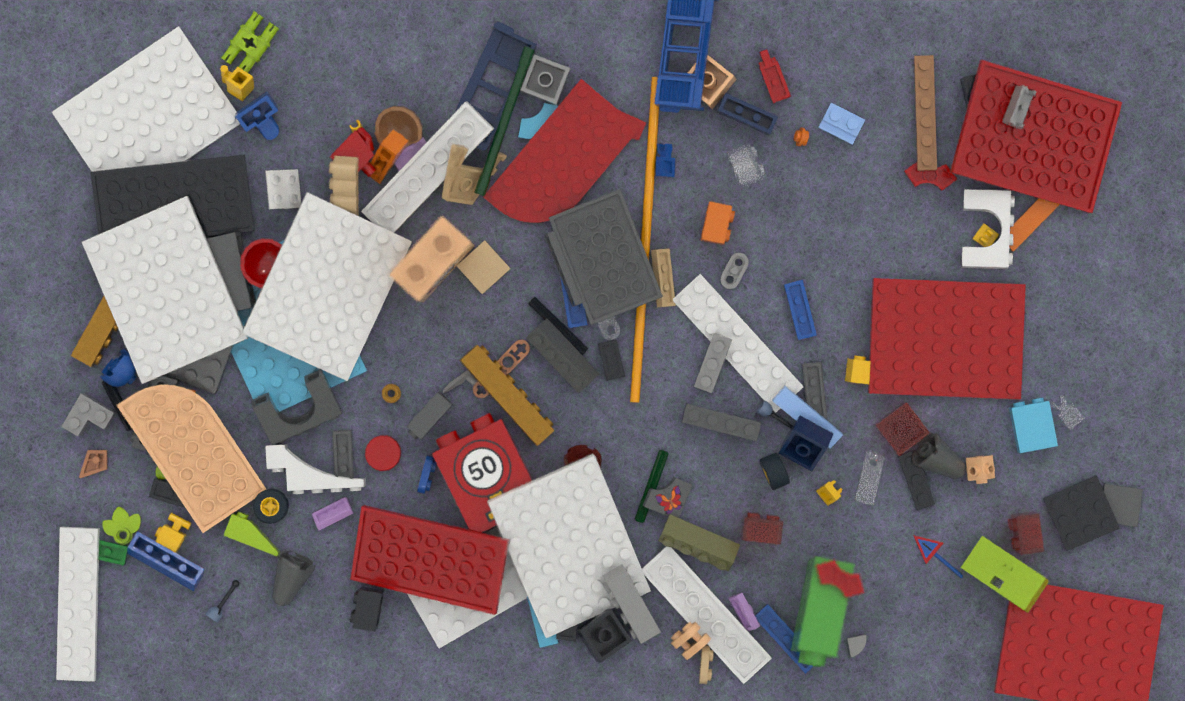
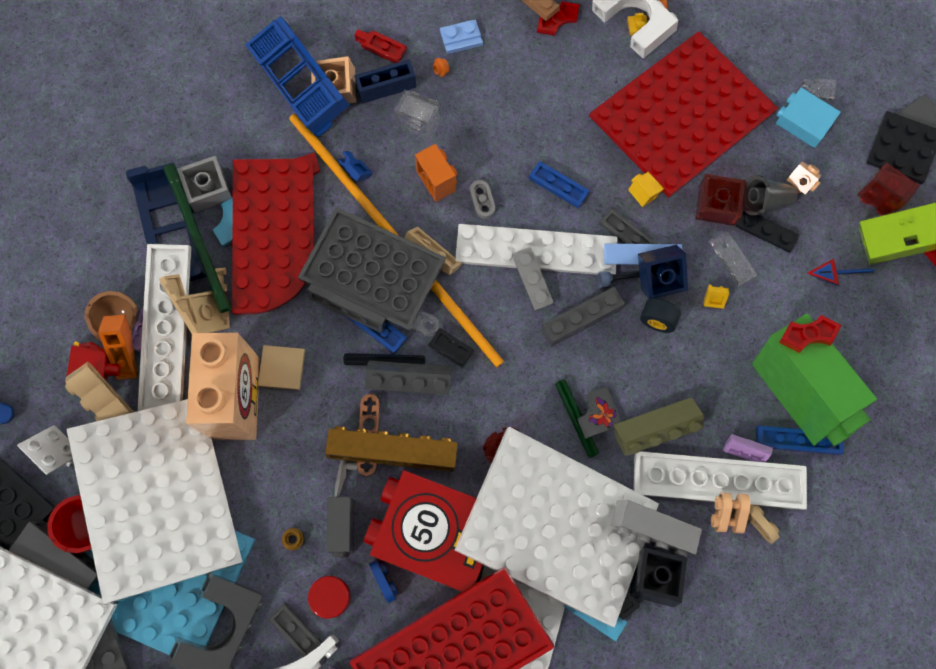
camera: 45 degrees left, 15 degrees down
(761, 529) = (696, 367): clear red brick -> none

